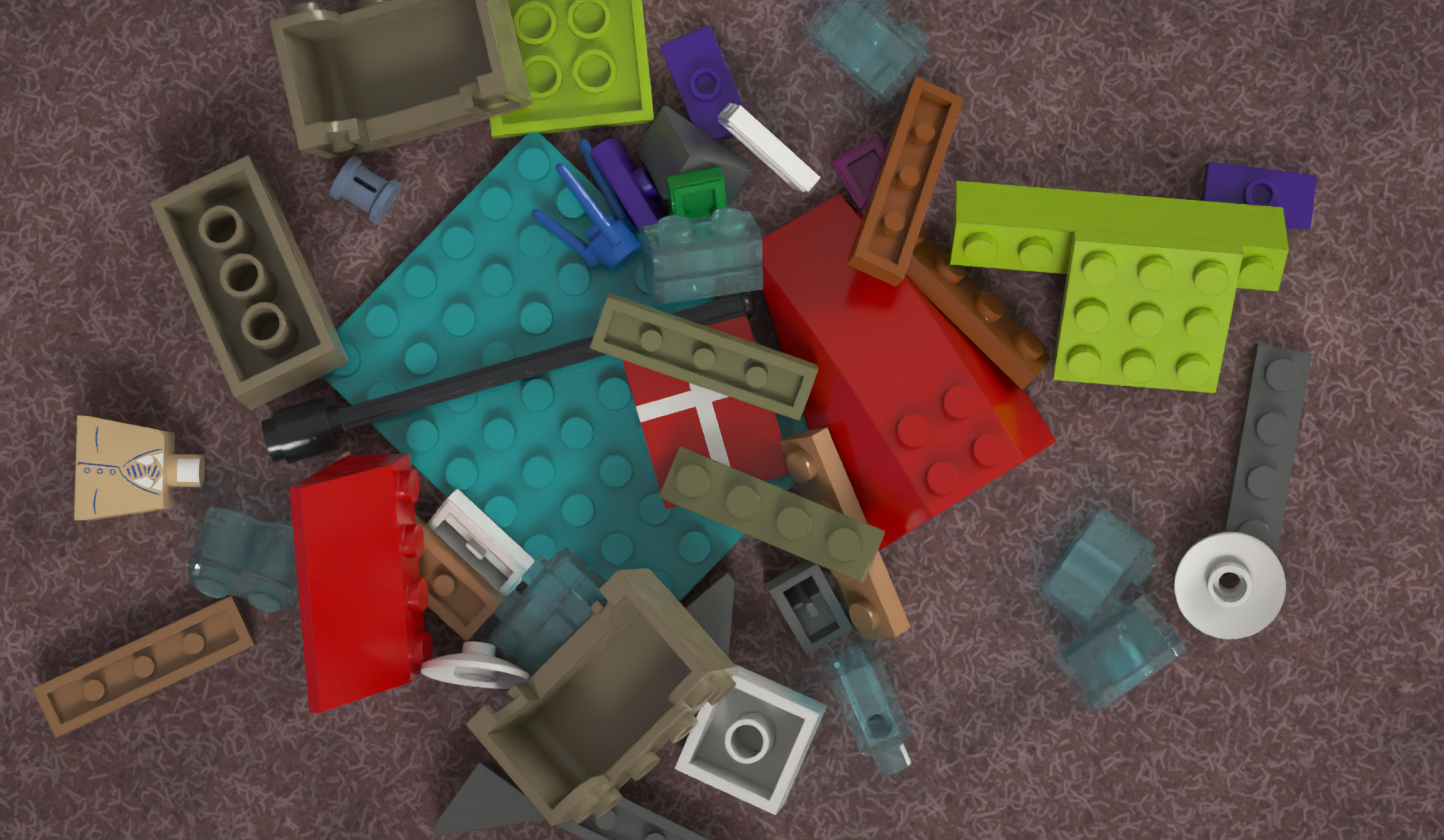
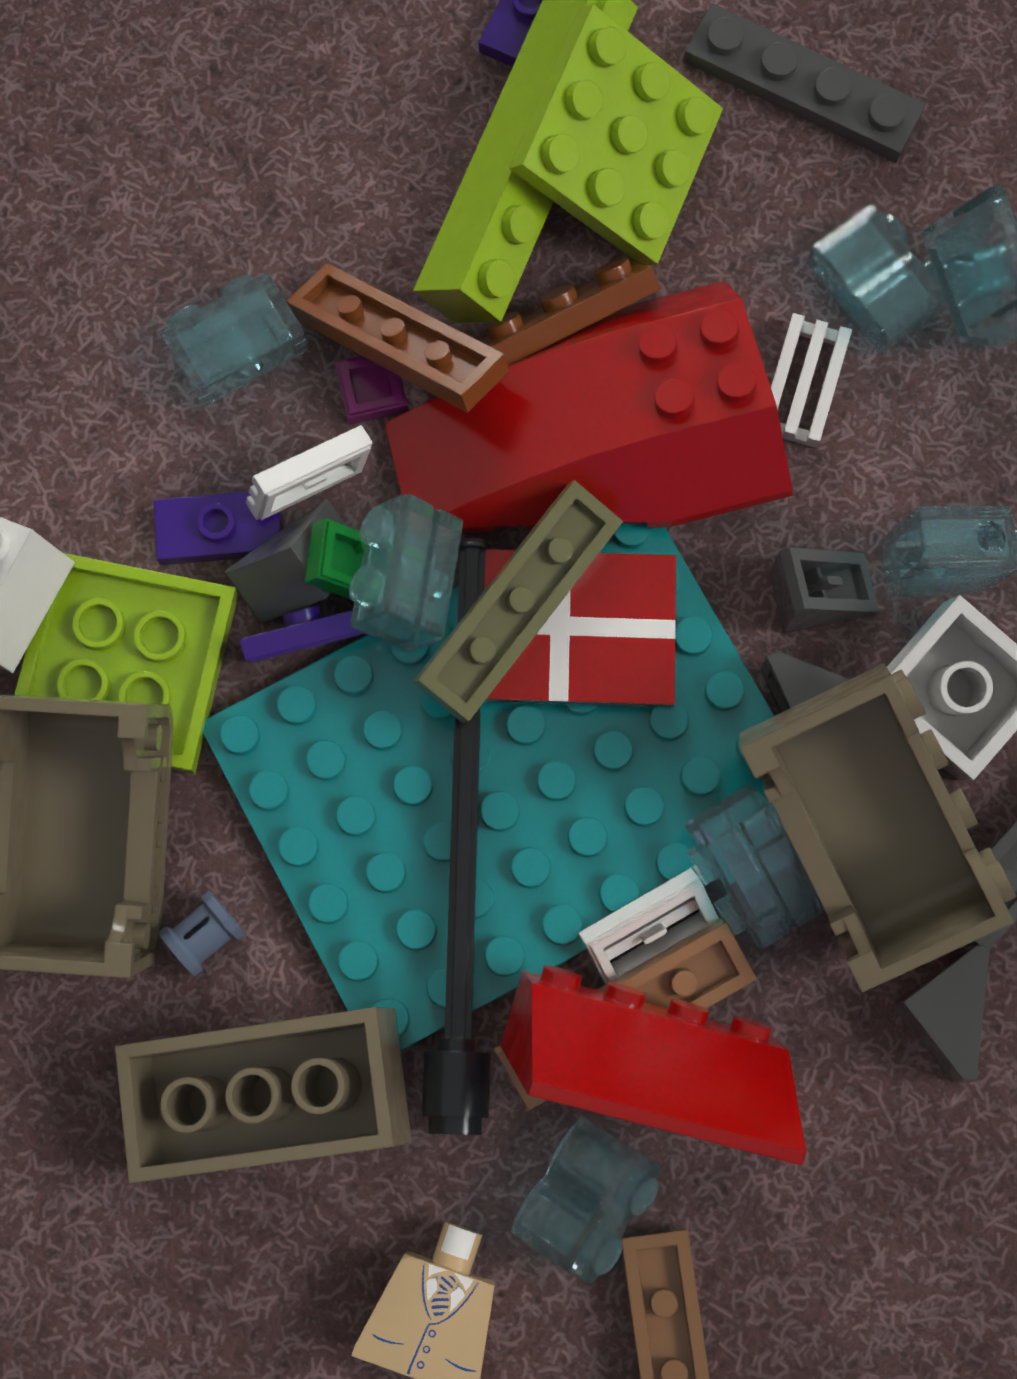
camera: 70 degrees left, 10 degrees down
(475, 668) = (792, 971): white dish -> none
(610, 238) = (352, 668): blue plant -> none
(772, 514) = (719, 580): olive plate -> none
(822, 479) = (760, 518): medium nougat plate -> none
(1035, 535) = (818, 334): none -> white tile
(1235, 610) = (953, 134): white dish -> none

